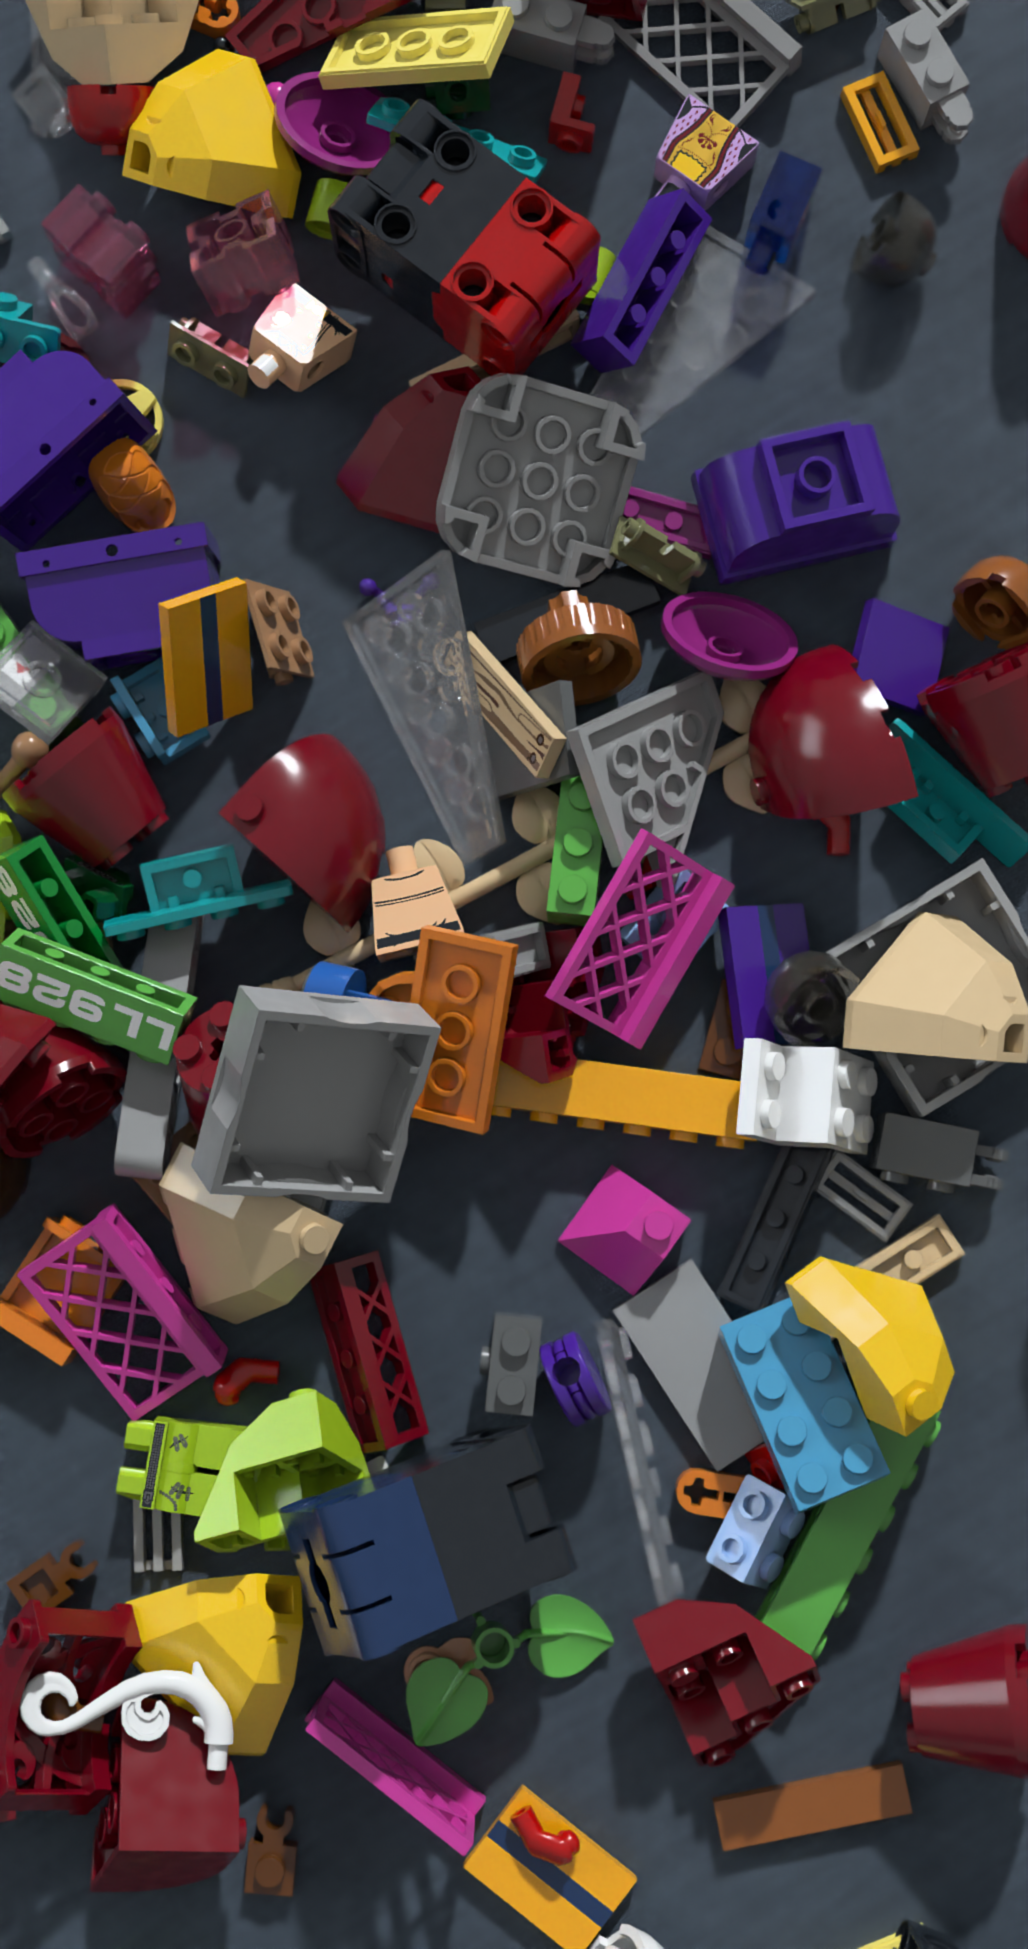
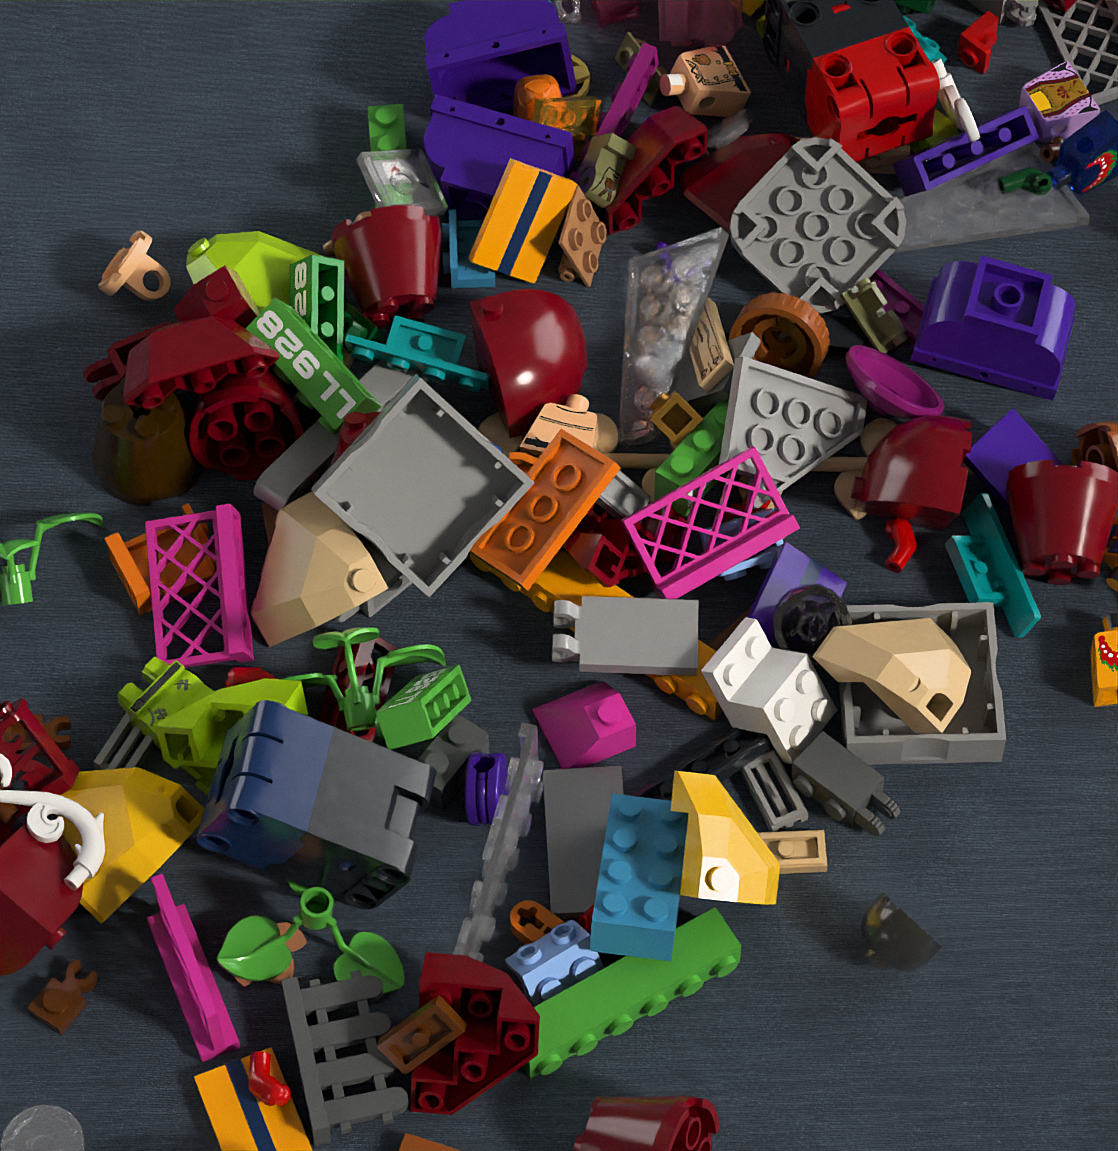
camera: 30 degrees right, 25 degrees down
(175, 489) = (570, 114): none -> clear yellow plate
(226, 460) = (626, 96): none -> magenta plate
(255, 534) = (604, 167): none -> olive leg
(298, 490) = (662, 148): none -> dark red brick
(354, 406) = (727, 131): none -> clear tile
(359, 1352) = (359, 703): none -> bright green plant
(467, 1349) = (422, 707): none -> bright green brick
(523, 822) = (673, 416): none -> pearl gold brick
(605, 1781) = (346, 1071): none -> dark grey fence
(610, 237) = (953, 104): none -> white plant
(627, 1115) = (629, 635): none -> light grey tile
(683, 1714) = (421, 1035): none -> reddish brown plate
(727, 281) = (1026, 179): none -> dark green arm
(736, 219) = (1050, 152): none -> reddish brown arm

